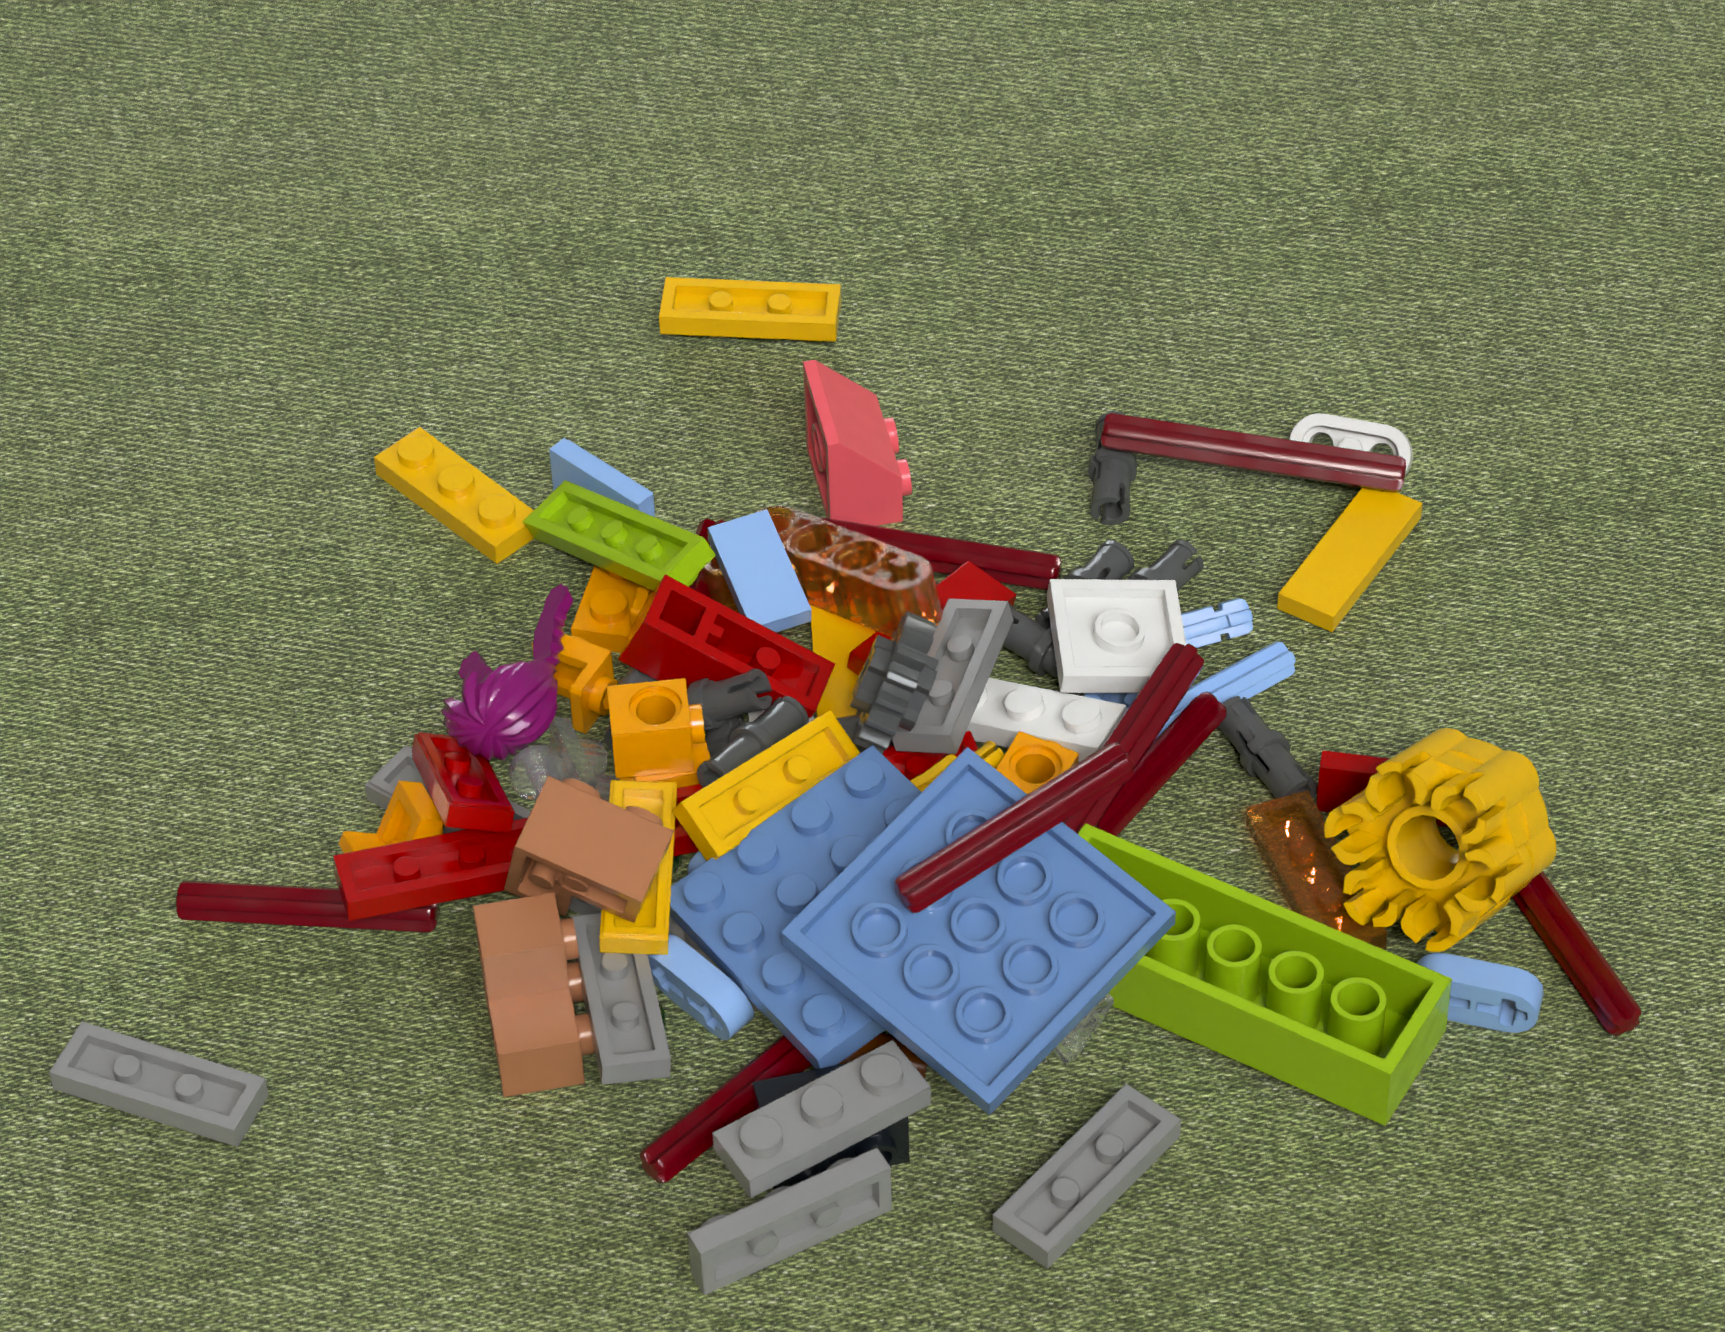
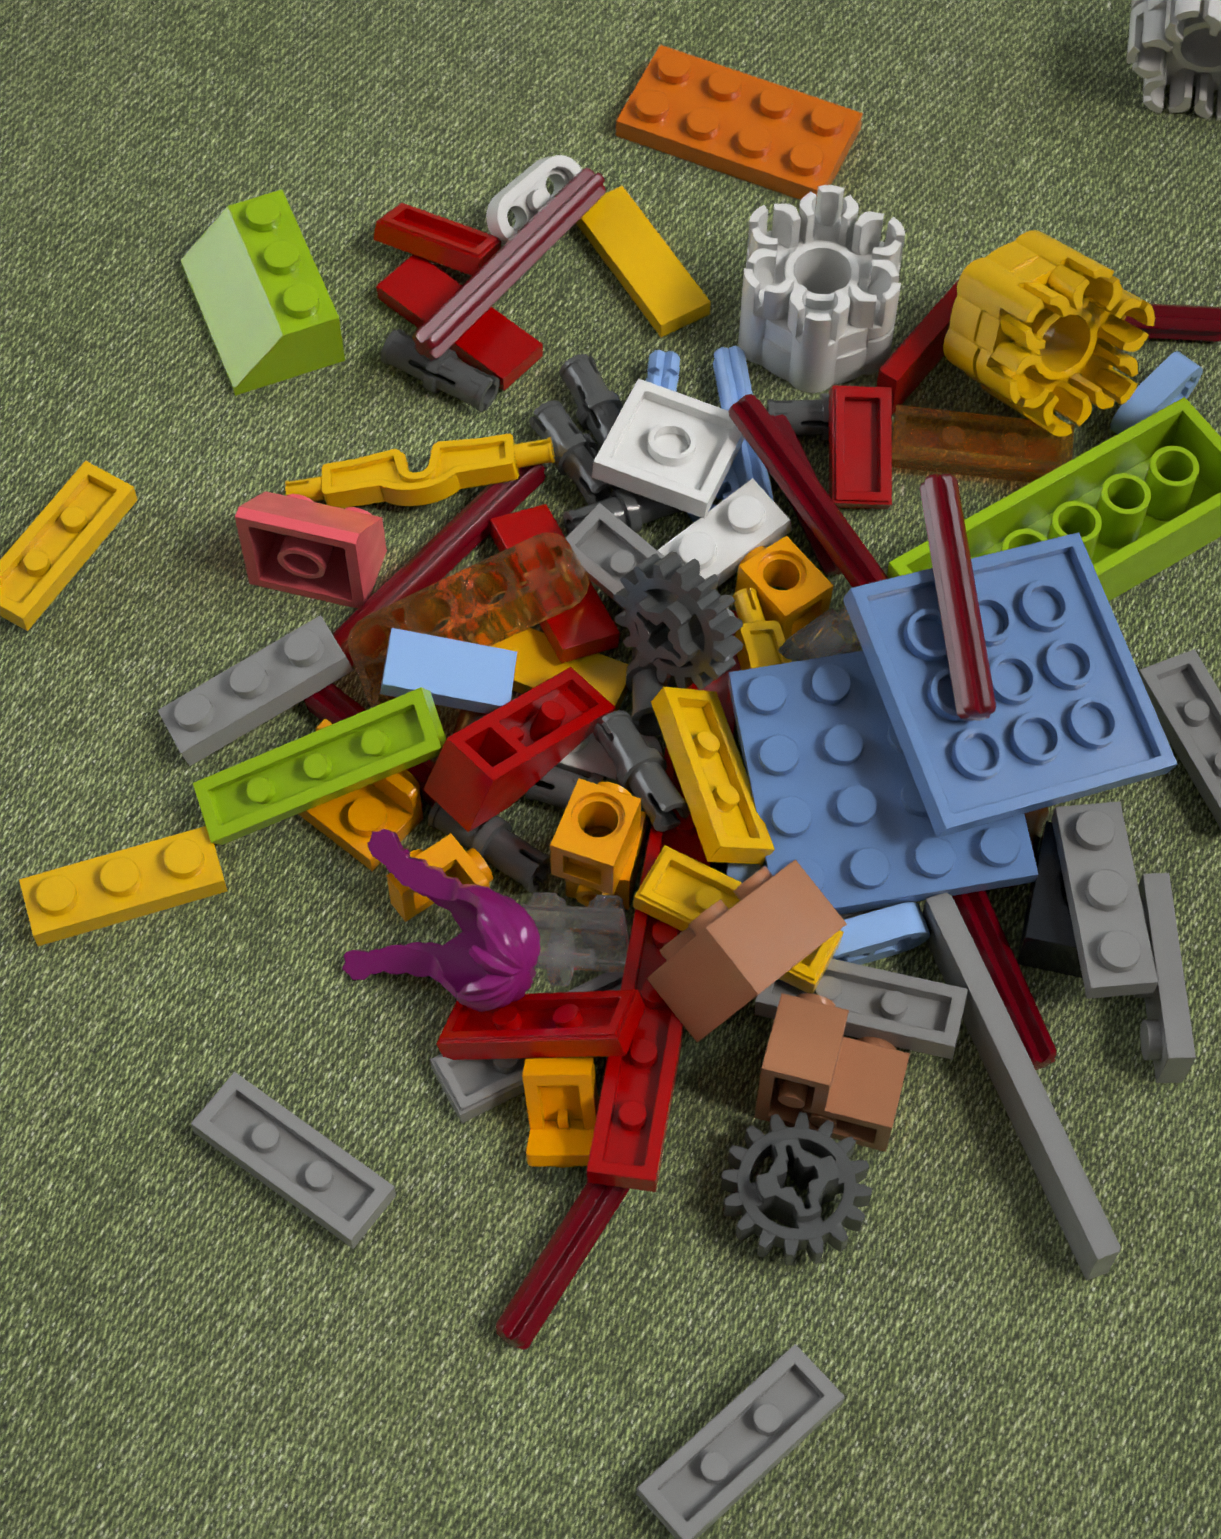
camera: 65 degrees left, 15 degrees up
(263, 697) = (294, 1160): none -> light grey plate
(416, 1028) = (770, 1199): none -> dark grey gear
(582, 468) = (186, 764): light blue tile -> none
(604, 1152) = (1021, 1091): none -> light grey tile
(691, 484) = (255, 690): none -> light grey plate
(730, 697) = (548, 805): dark grey pin -> none
(971, 496) = (450, 468): none -> yellow piece
(1107, 324) = (262, 295): none -> lime slope
(1175, 488) = (489, 345): none -> red tile
(1240, 776) = (860, 447): none -> red tile
(1254, 395) = (436, 238): none -> red tile
(1384, 663) = (820, 290): none -> white piece
(1577, 563) = (738, 124): none -> orange plate

